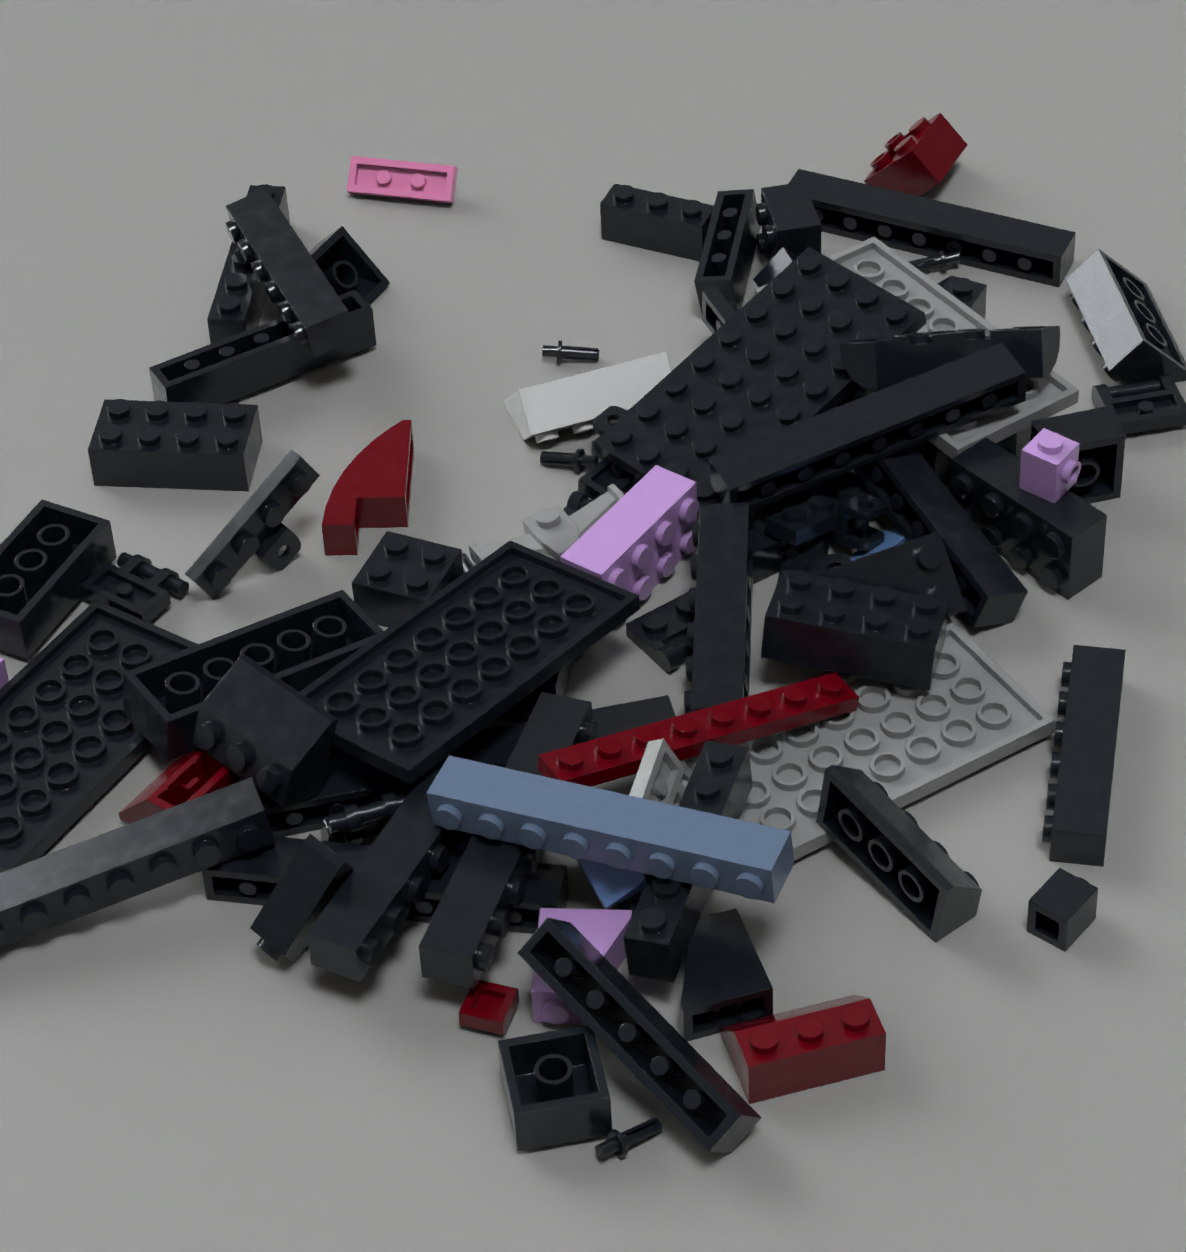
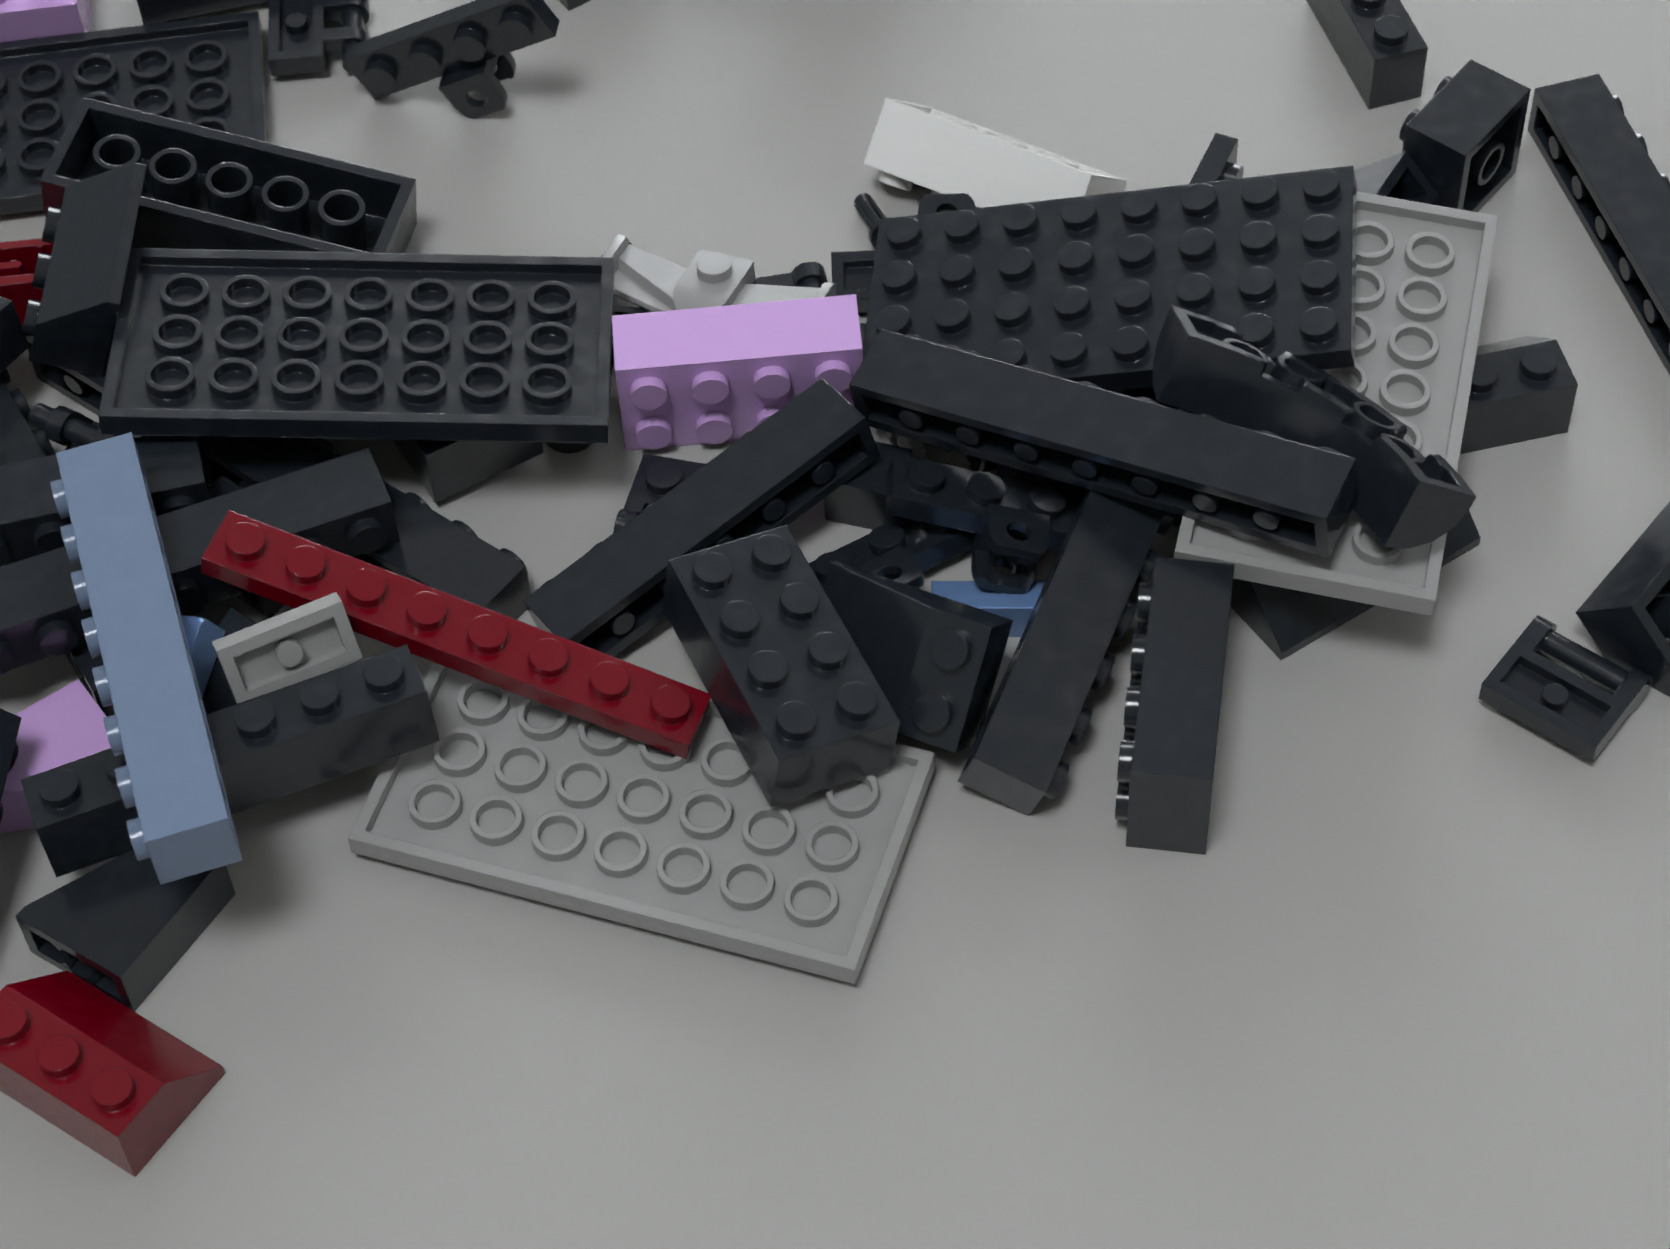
camera: 50 degrees right, 10 degrees up
(371, 491) = (648, 99): dark red slope -> none
(403, 576) = (517, 210): black brick -> none
(570, 352) = (1054, 96): black piece -> none
(729, 246) = (1363, 114): black brick -> none
(896, 852) = (447, 951): black slope -> none
(937, 261) = (1618, 316): black piece -> none
(1049, 465) = (1210, 658): lavender brick -> none
(1062, 909) = (525, 1190): black brick -> none
(1086, 756) = (828, 1043): black brick -> none
(1099, 450) = (1347, 683): black brick -> none

